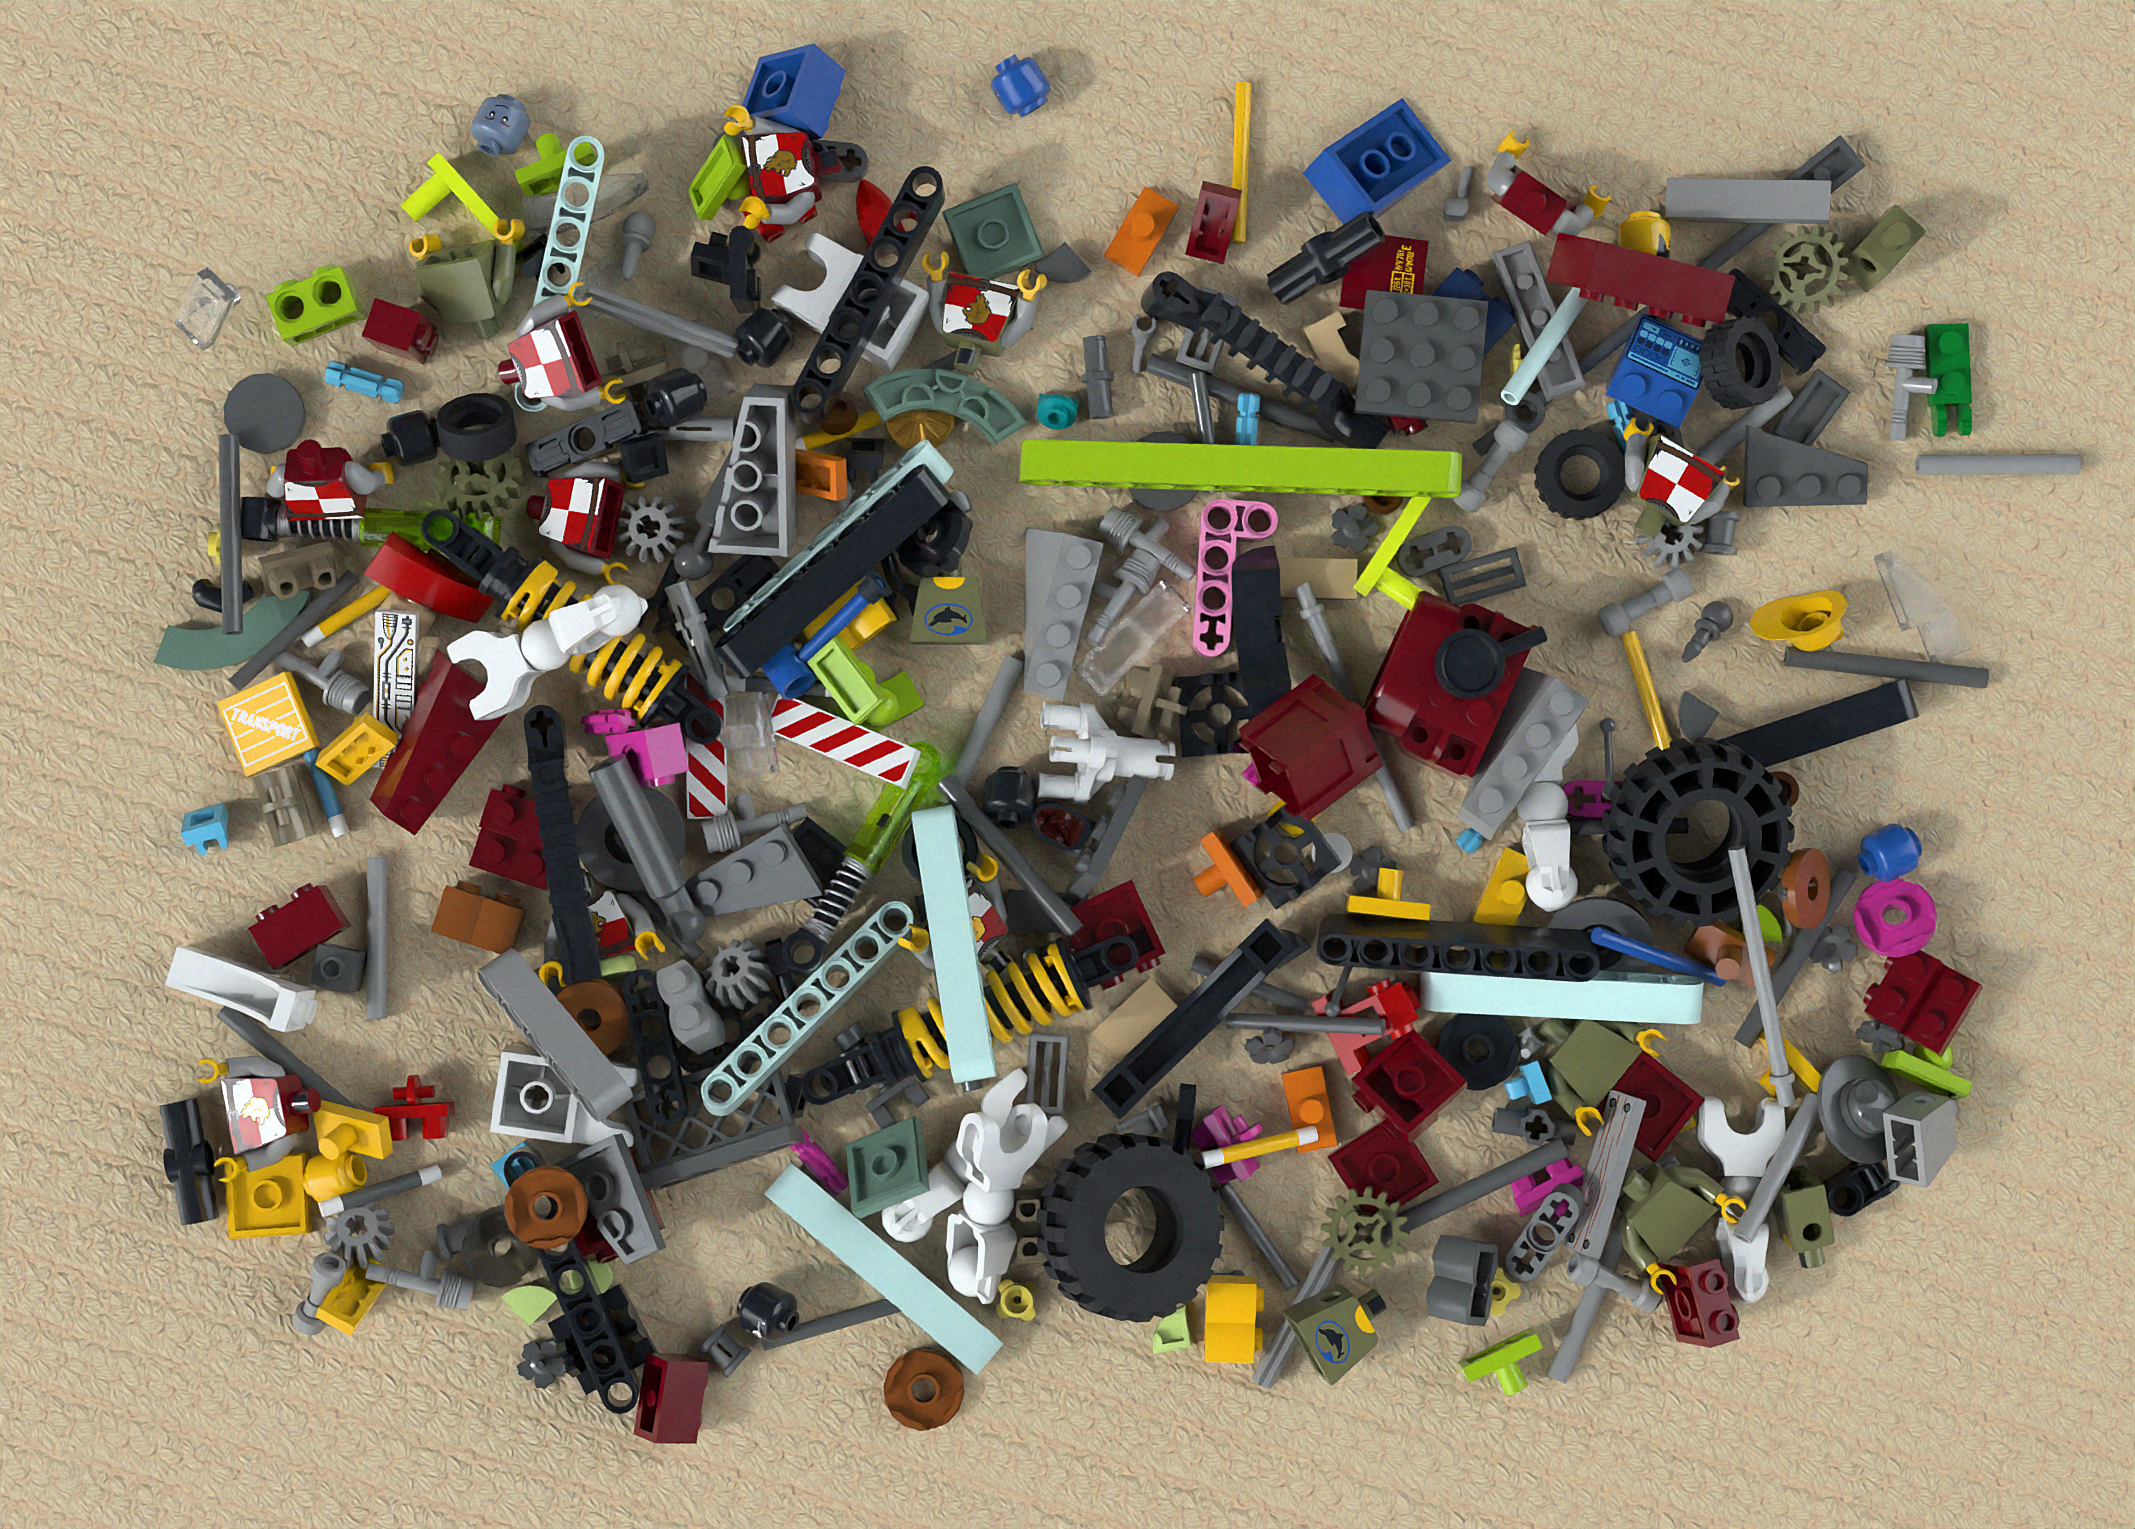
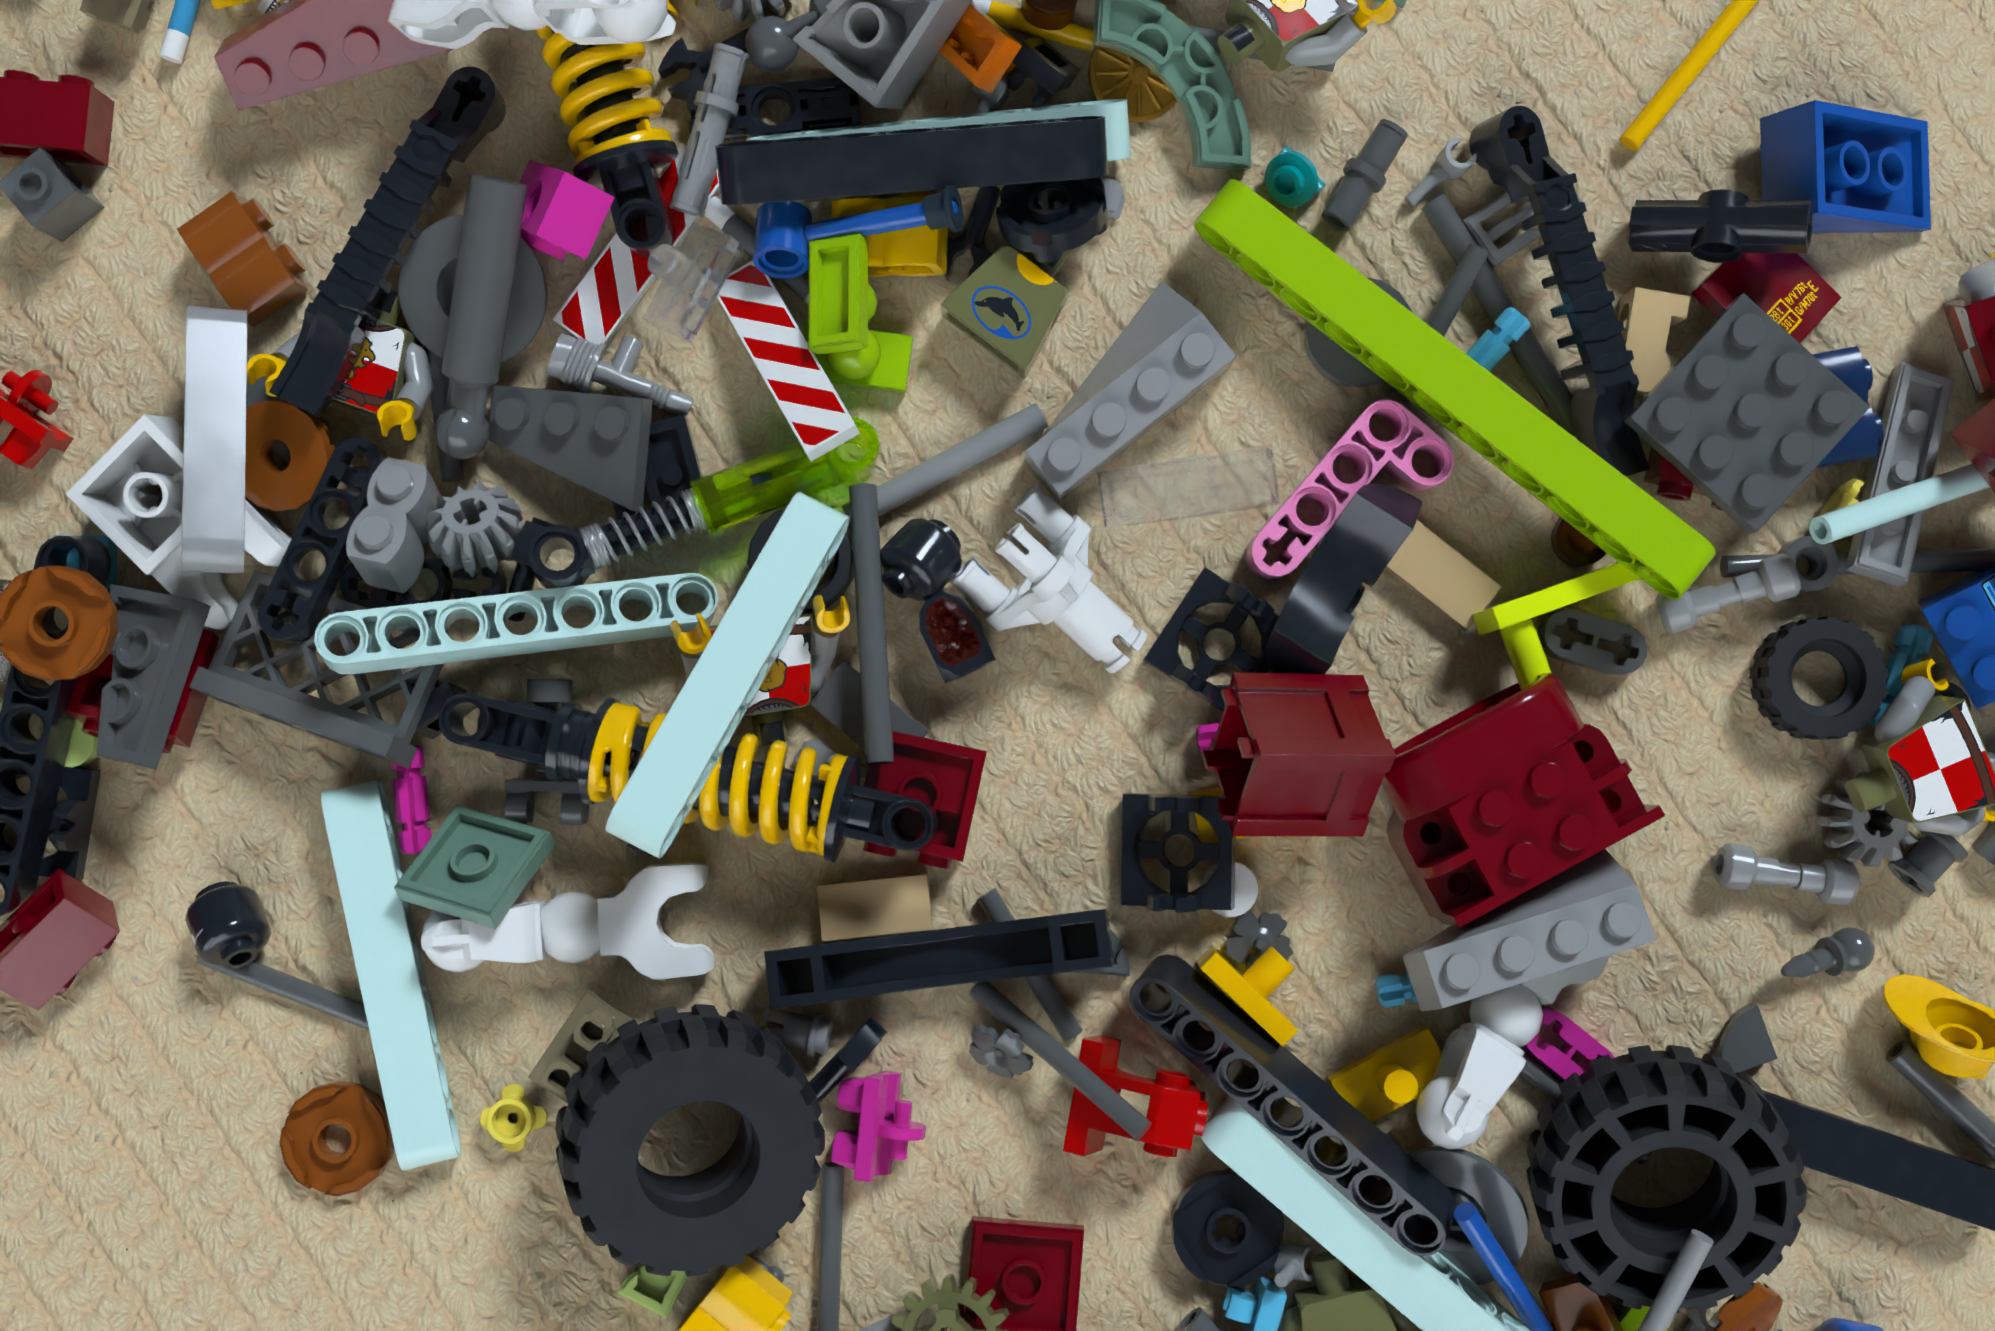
camera: 35 degrees right, 0 degrees up
(376, 938) = (121, 197): light grey piece -> none
(510, 838) = (334, 192): dark red plate -> none
(607, 721) = (543, 145): dark pink axle -> none
(617, 967) = (350, 421): yellowish green tile -> none
(711, 1349) = (150, 930): dark grey bush -> none
(995, 1166) = (593, 954): white piece -> none
(1049, 1038) = (765, 858): light grey tile -> none
(1063, 266) = (1419, 29): dark grey tile -> none
(1106, 837) = (995, 681): dark grey wing -> none
(1123, 529) = (1267, 363): light grey piece -> none
(1135, 577) = (1239, 423): light grey piece -> none
(1141, 231) = (1531, 54): orange tile -> none
(1157, 702) = (1160, 579): dark tan hips -> none
(1213, 222) = (1623, 95): dark red tile -> none
(1226, 870) = (1098, 819): orange tile -> none
(1258, 1147) = (902, 1156): yellow bar -> none
(1309, 1105) = (992, 1152): orange tile -> none
(1332, 1008) = (1102, 1064): dark grey hinge -> none
(1344, 684) = (1408, 608): light grey bar -> none
(1353, 528) = (1520, 550): dark grey plant -> none
(1407, 1087) = (1119, 1214): dark red plate -> none
(1456, 208) = (1898, 283): light grey hand -> none
(1473, 663) = (1563, 797): black piece -> none
(1515, 567) = (1668, 728): dark grey tile -> none
(1607, 727) = (1639, 979): dark grey hinge -> none
(1646, 690) = (1711, 970): yellow bar -> none

